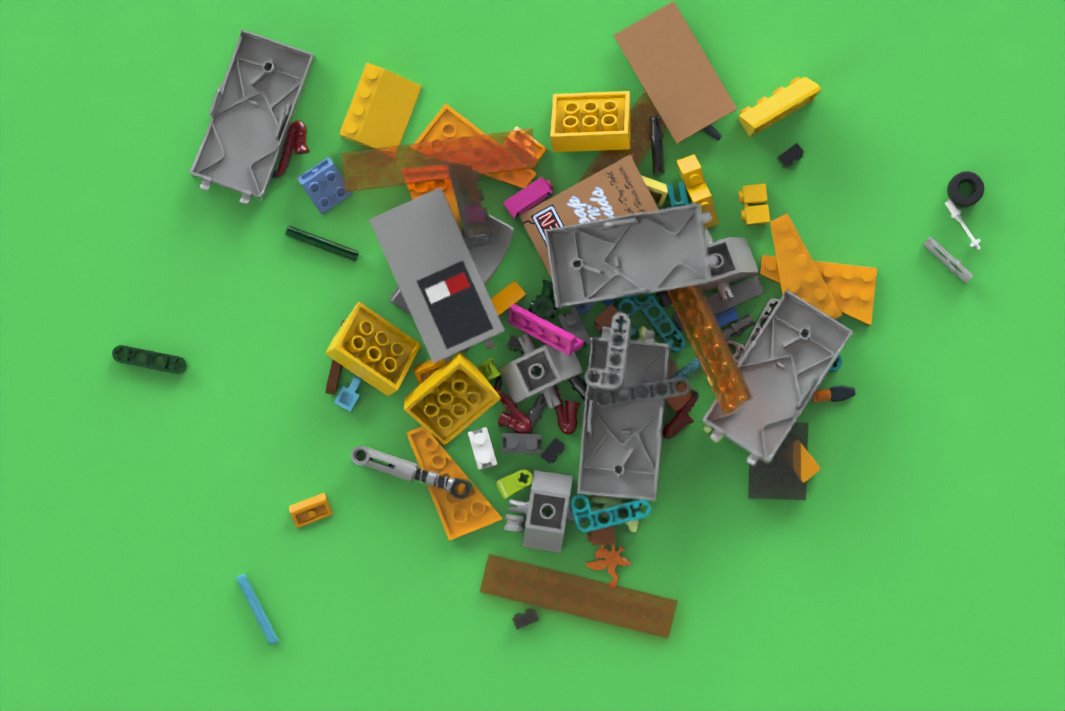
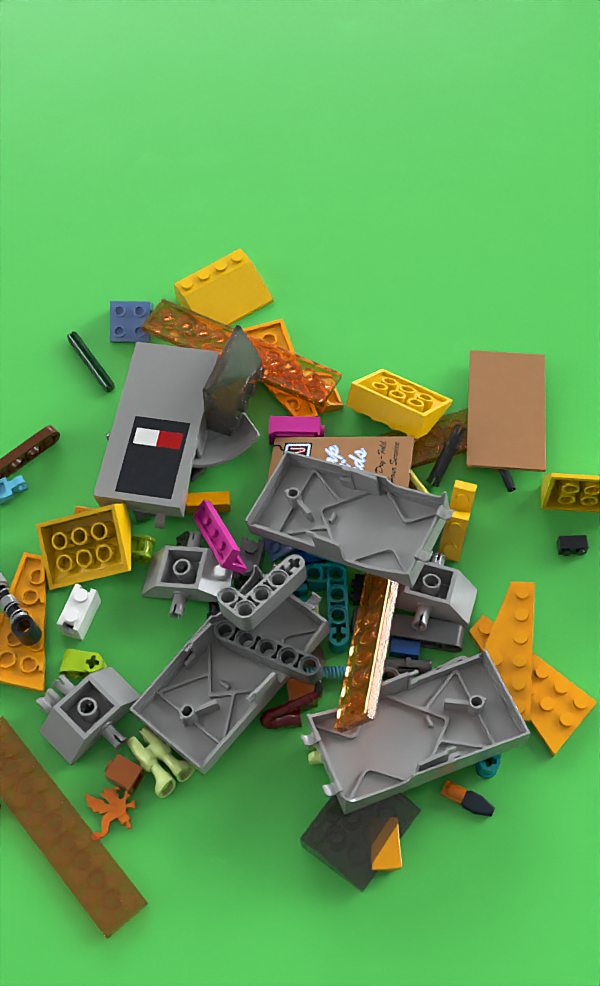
camera: 35 degrees right, 25 degrees down
(252, 116) = (118, 240): light grey piece -> none
(296, 139) = (133, 279): dark red piece -> none
(373, 349) = (55, 460): yellow slope -> none
(516, 419) = (131, 608): dark red piece -> none
(522, 443) = (118, 632): dark grey brick -> none
(536, 411) = (151, 617): dark grey pin -> none
(544, 299) = (237, 520): dark green connector -> none
(552, 451) = (142, 661): black piece -> none
(566, 415) = (181, 634): dark red piece -> none
(612, 512) = (148, 751): teal beam -> none
(754, 195) = (507, 563): yellow piece -> none

